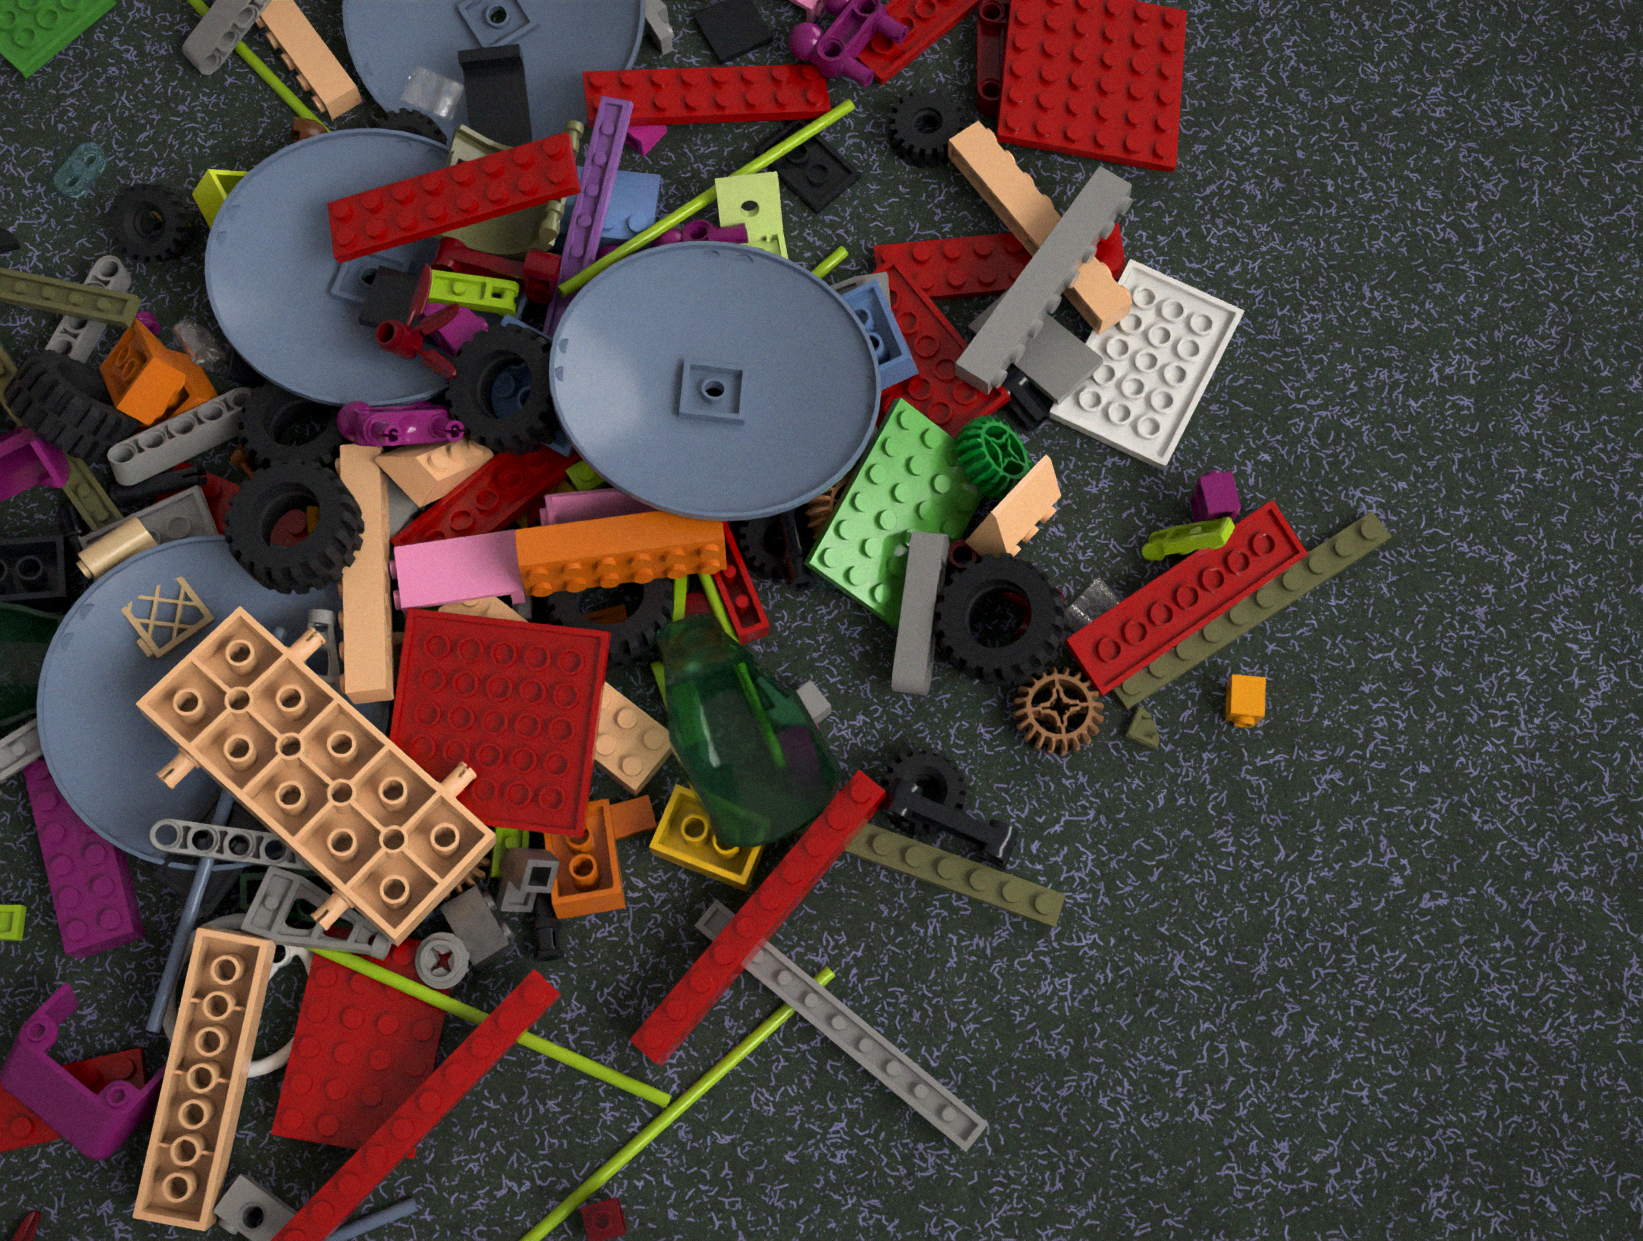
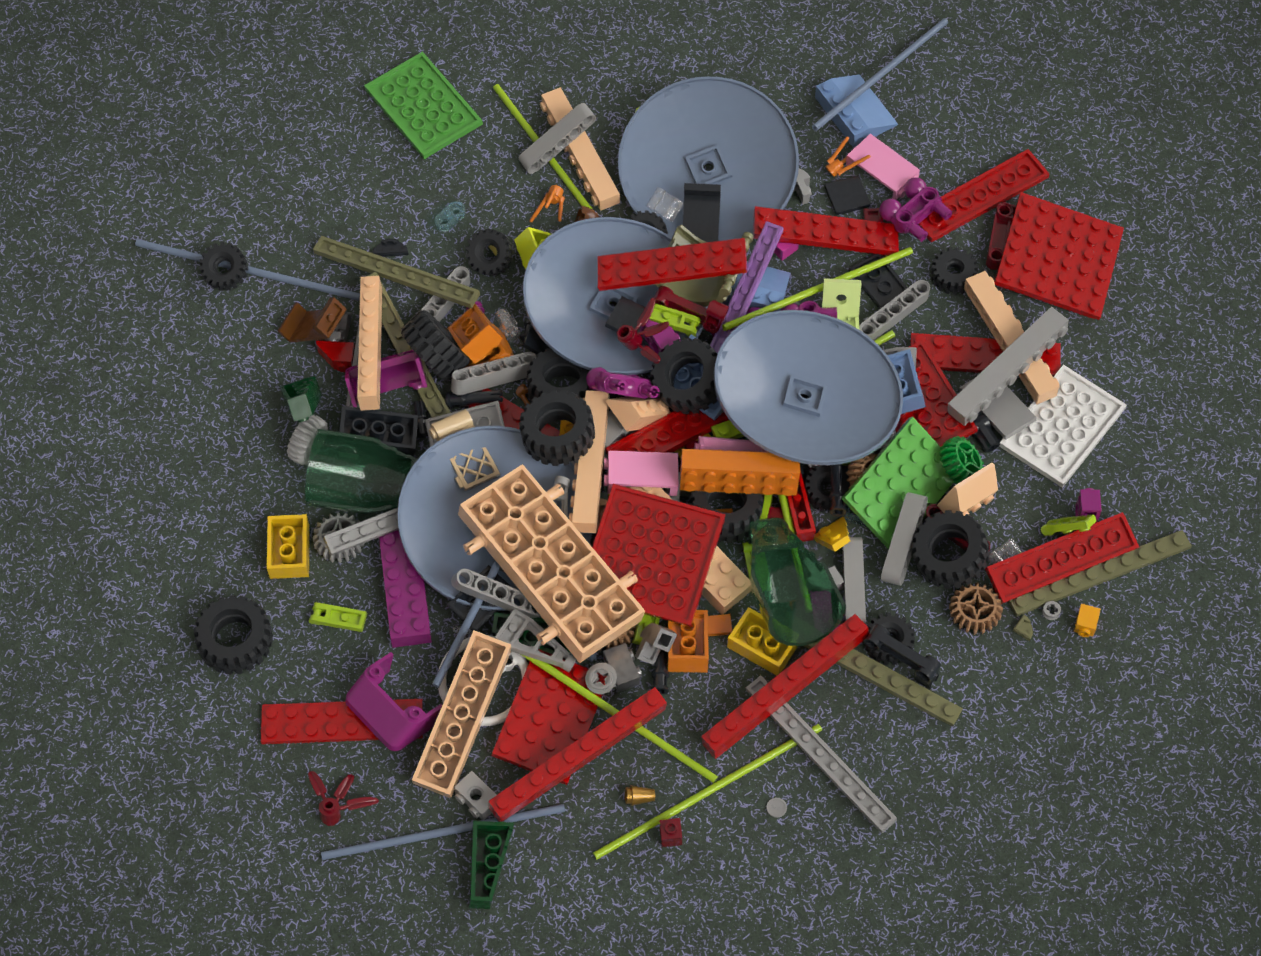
camera: 10 degrees right, 10 degrees down
(249, 108) = (553, 196): none -> orange plant
(540, 1158) = (638, 795): none -> pearl gold cone
(779, 54) = (872, 214): none -> dark red tile
(780, 1133) = (776, 807): none -> light grey piece
(802, 624) = (834, 535): none -> yellow wing
(843, 202) = (897, 305): none -> light grey beam
(847, 698) = (854, 578): none -> light grey beam
(1190, 684) = (1046, 613): none -> light grey bush

